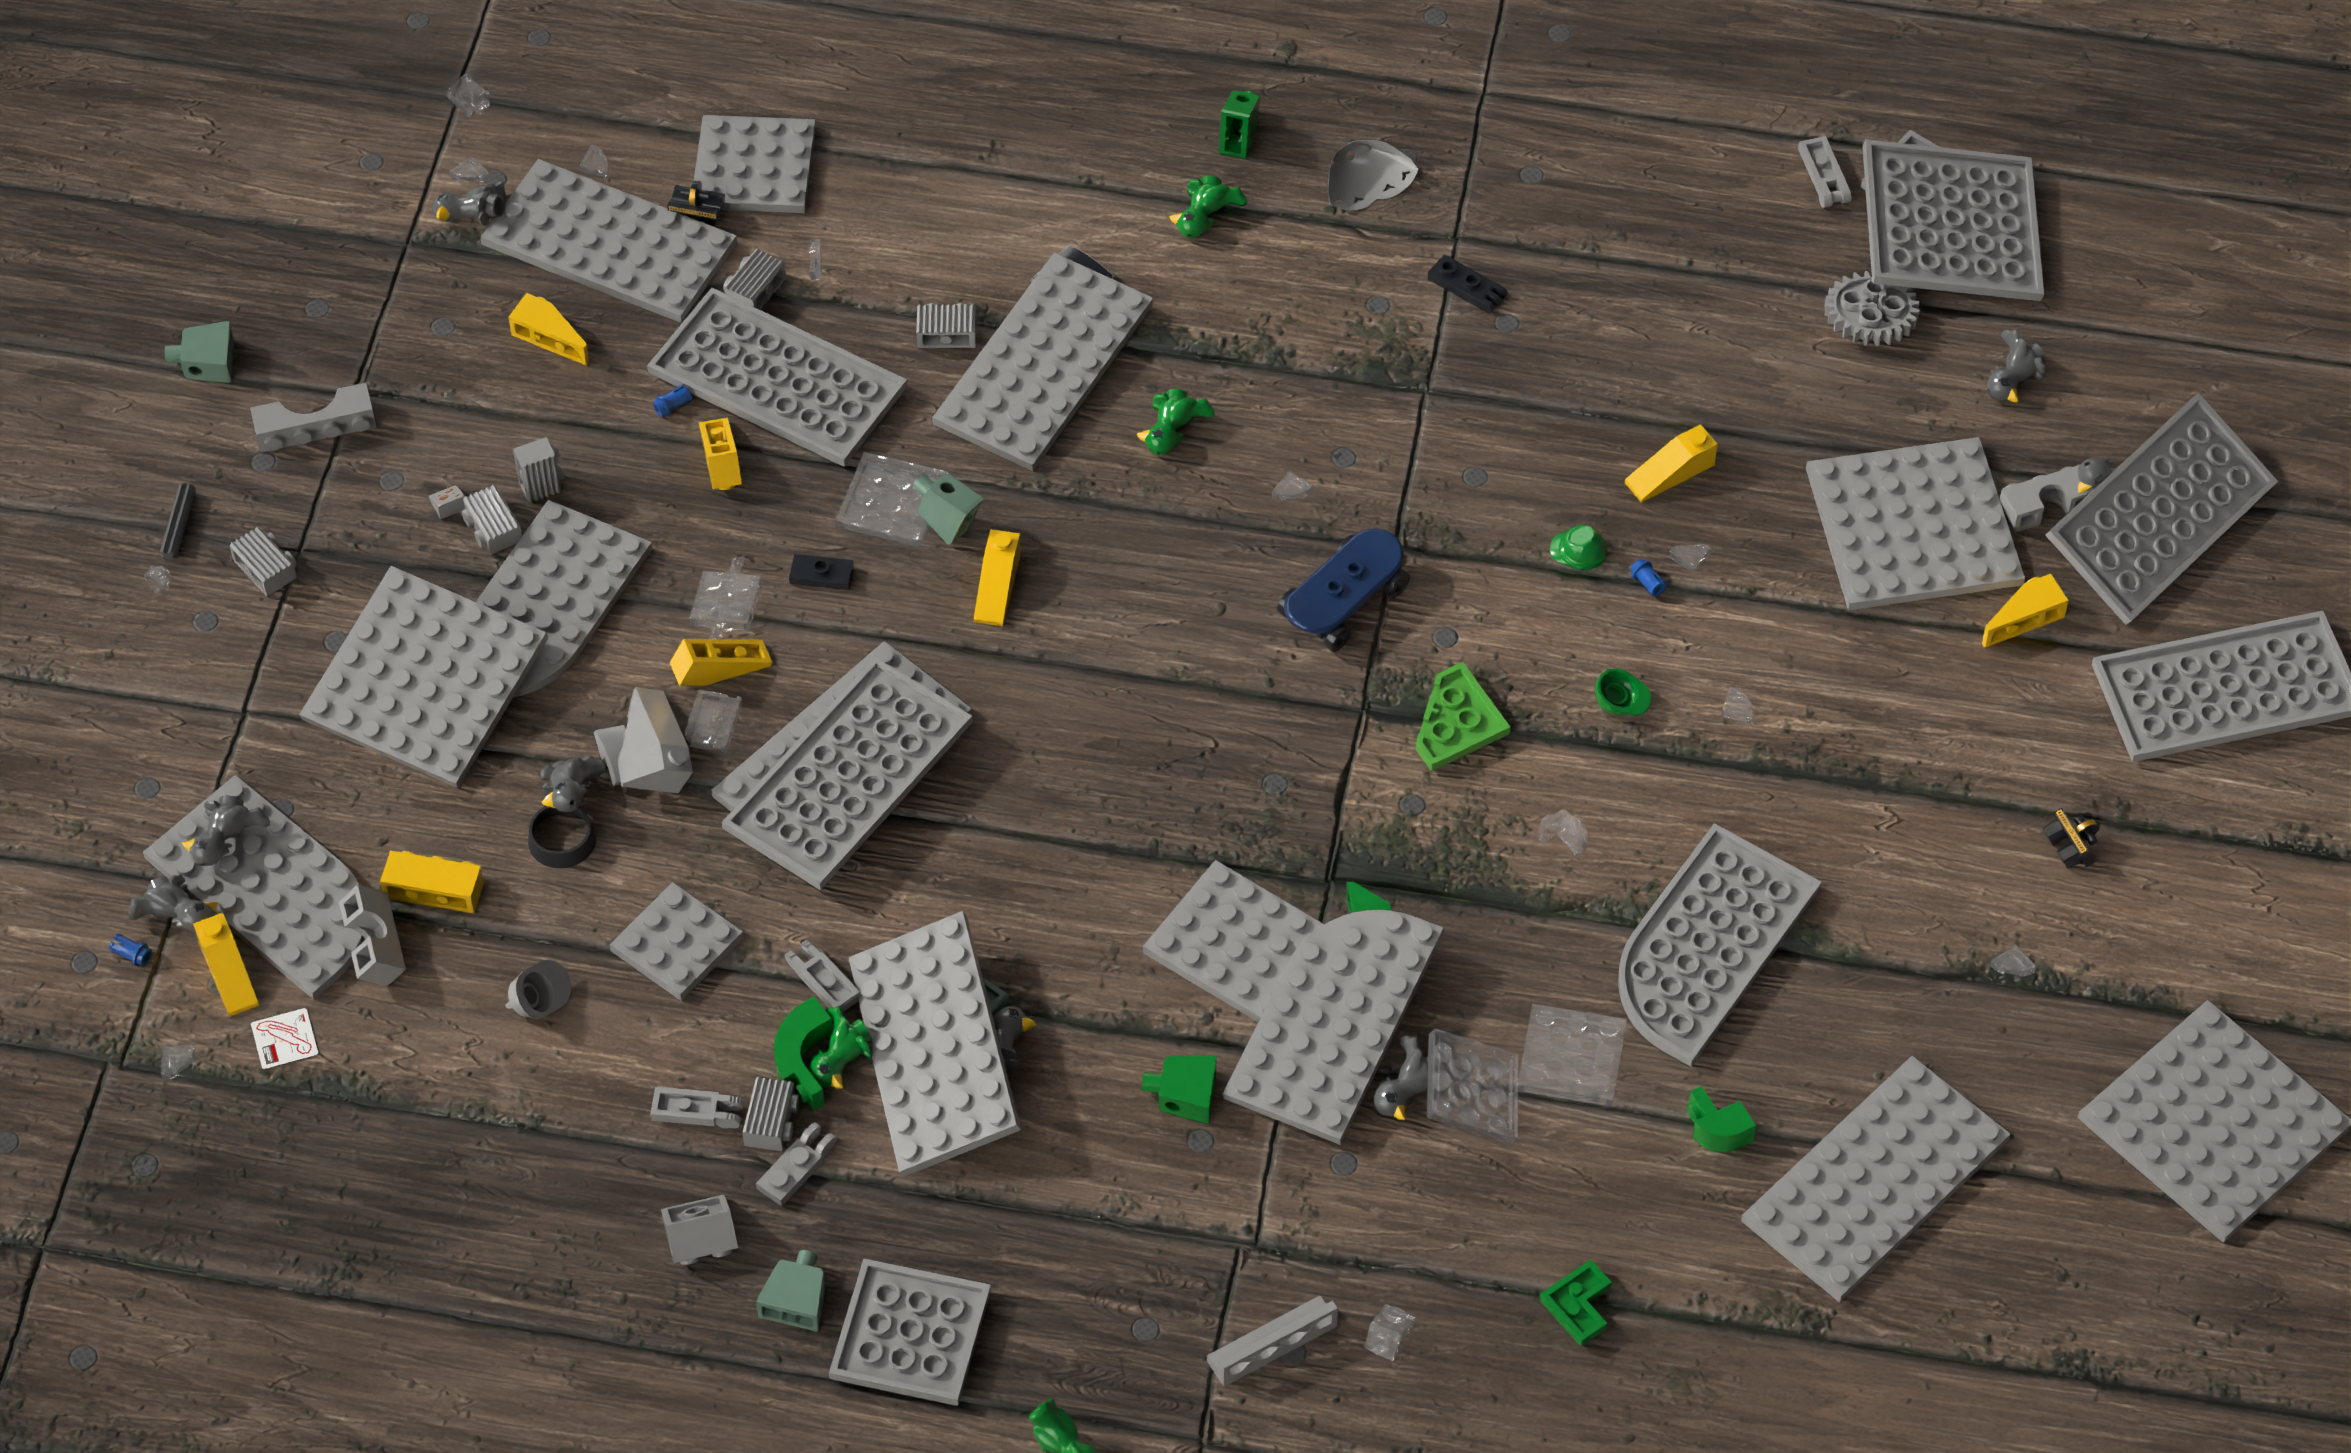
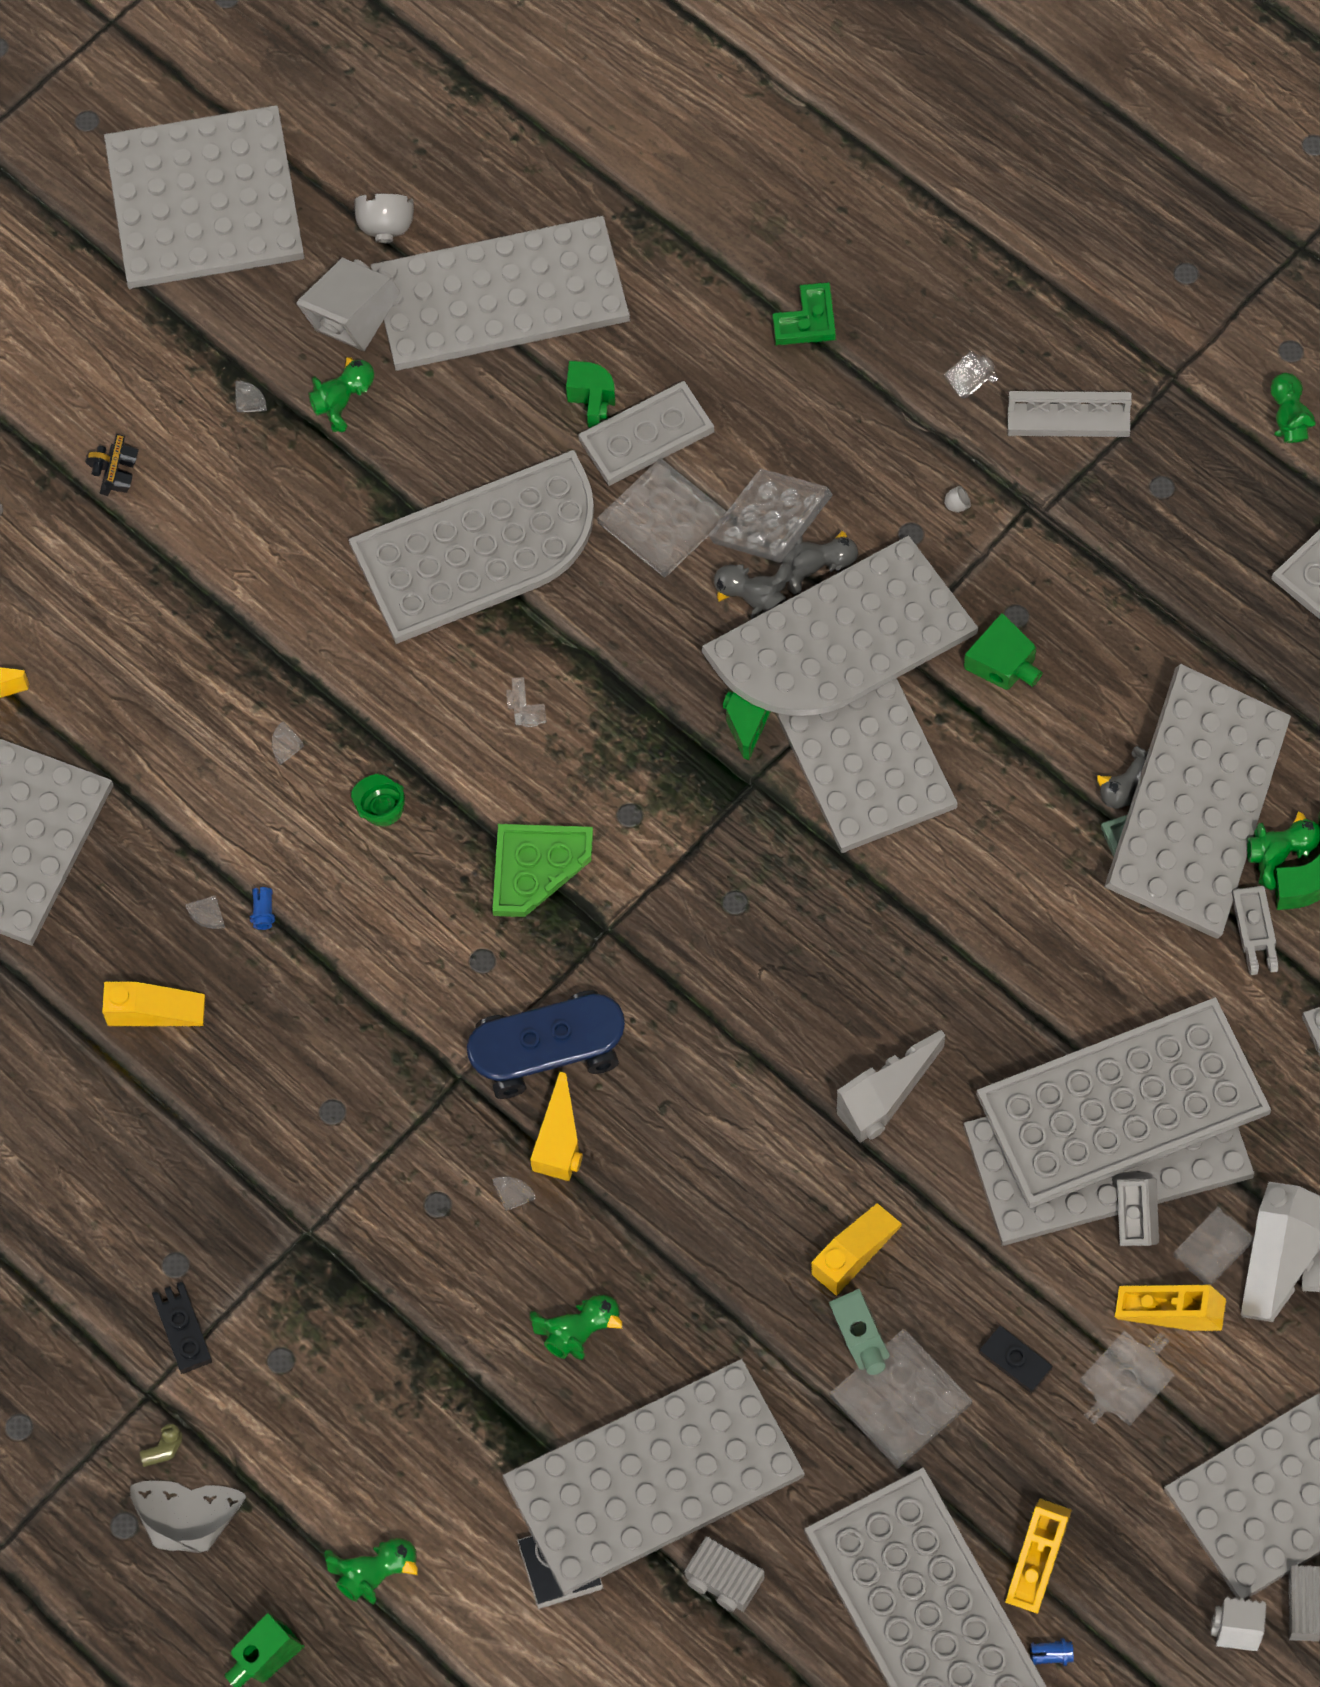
camera: 145 degrees left, 10 degrees up
(786, 710) = (1138, 1212): none -> light grey slope
(1053, 682) = (874, 1096): none -> light grey wedge
(1283, 536) = (557, 1143): none -> yellow slope
(1317, 1208) = (957, 500): none -> light grey hinge
(1414, 205) = (166, 1448): none -> olive arm
(1430, 1015) = (759, 592): none -> dark grey animal
(1579, 548) = (298, 978): green hat -> none
(1641, 1115) = (646, 433): none -> light grey plate
(1939, 993) = (334, 394): none -> green animal
(1992, 1065) = (349, 302): none -> light grey slope
(2036, 1177) = (384, 216): none -> light grey cylinder

